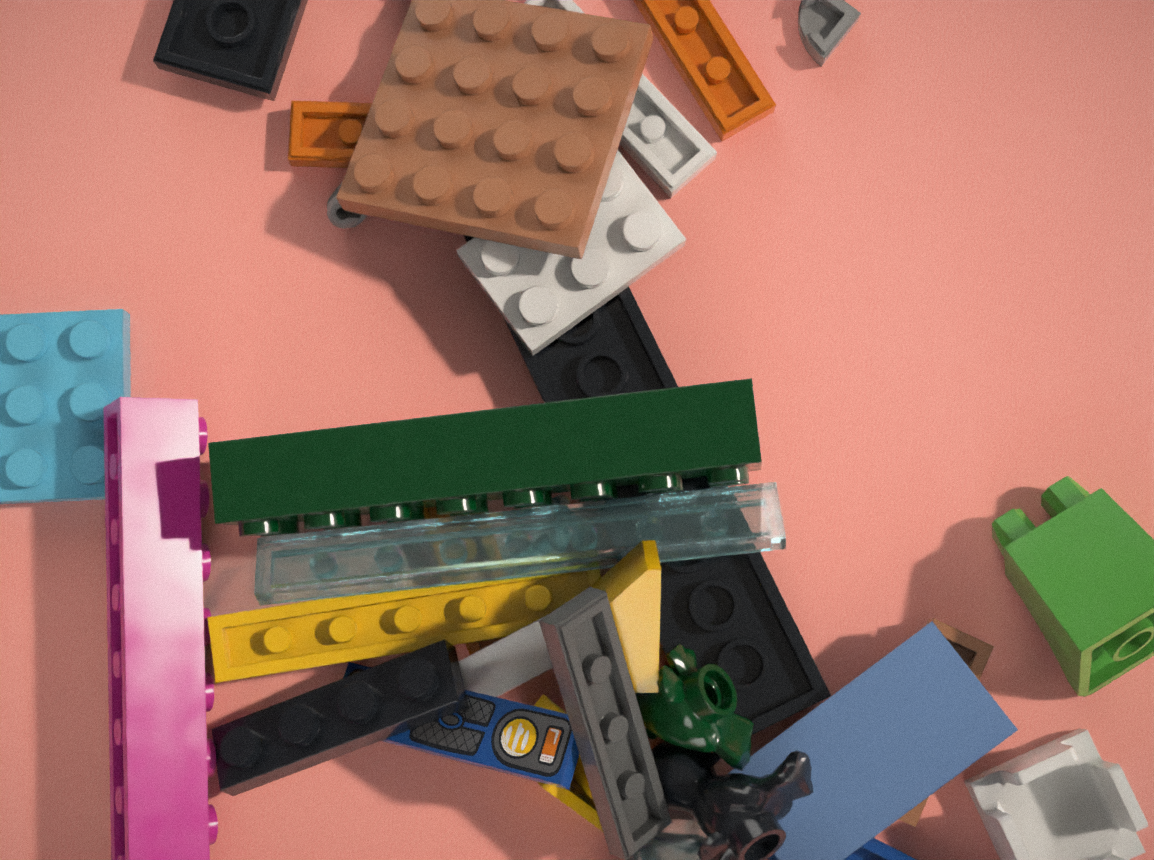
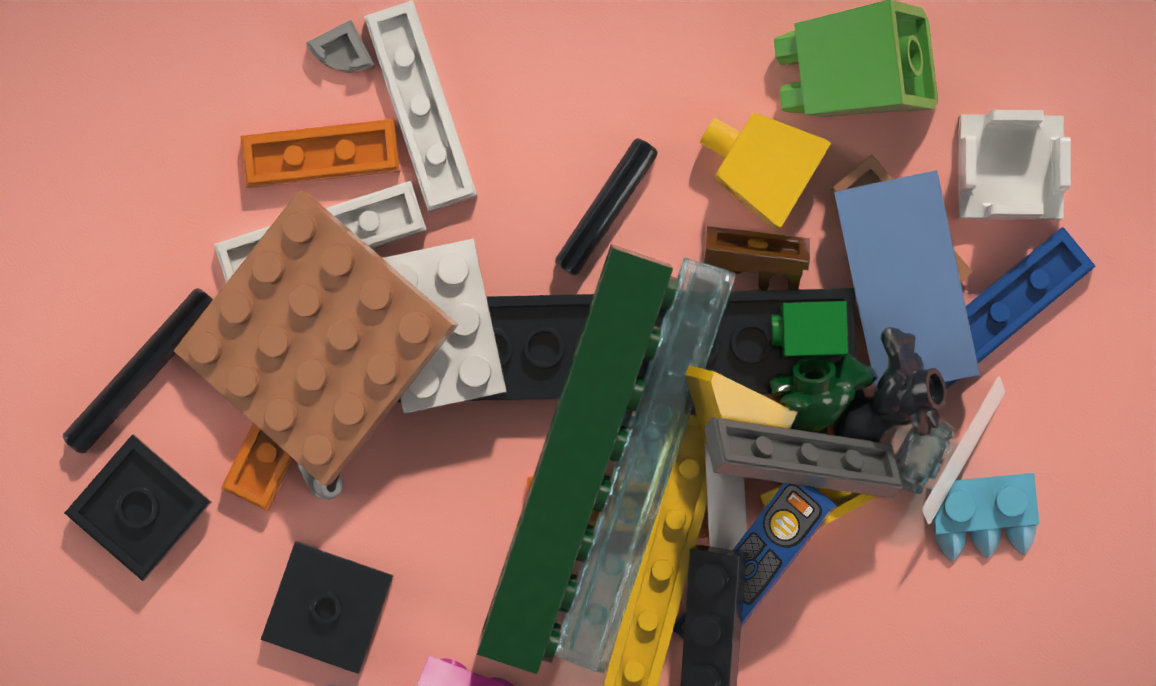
camera: 65 degrees left, 5 degrees up
(210, 271) = (327, 607): none -> black plate
(762, 666) = (811, 329): none -> green brick
(791, 376) = (606, 206): none -> black axle
(802, 129) = (420, 106): none -> white tile
(820, 568) = (758, 251): none -> reddish brown plate
(923, 529) = (765, 164): none -> yellow torso

